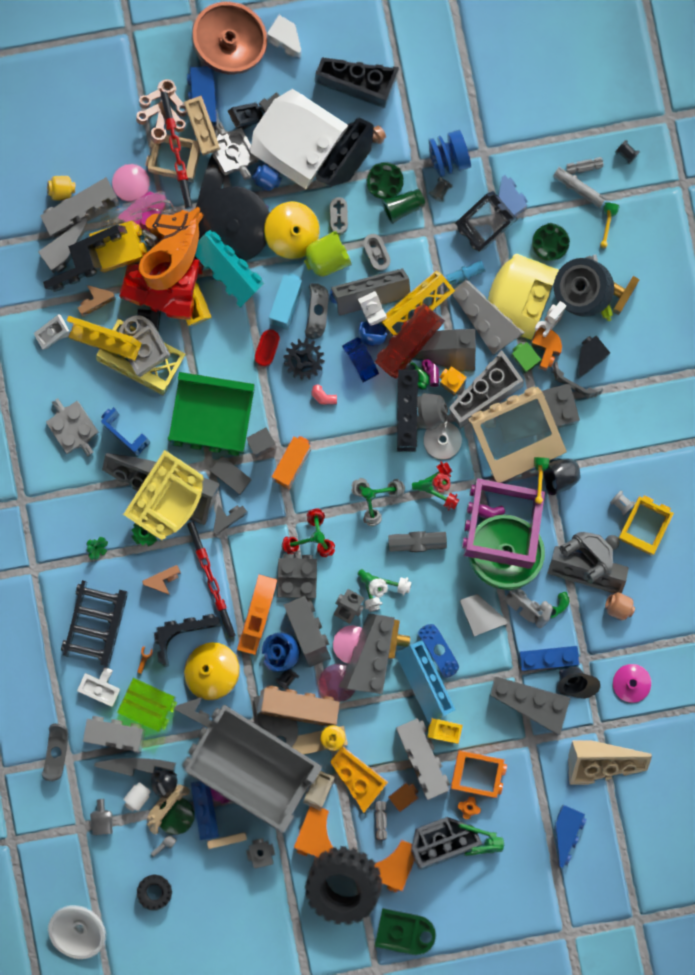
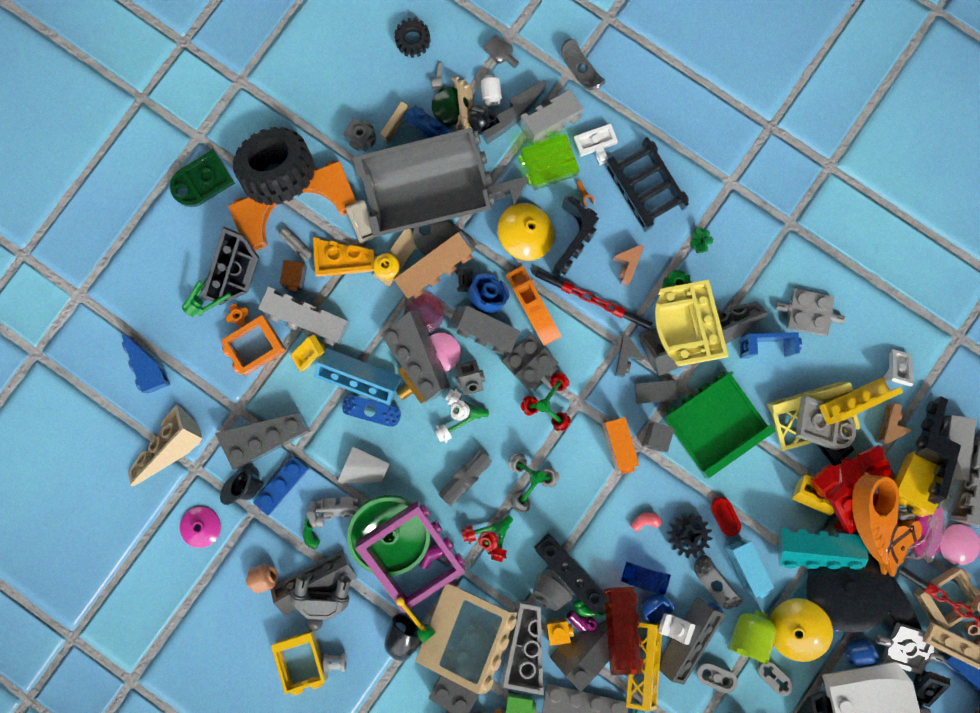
camera: 140 degrees right, 0 degrees up
(443, 450) = (513, 568): white dish -> none

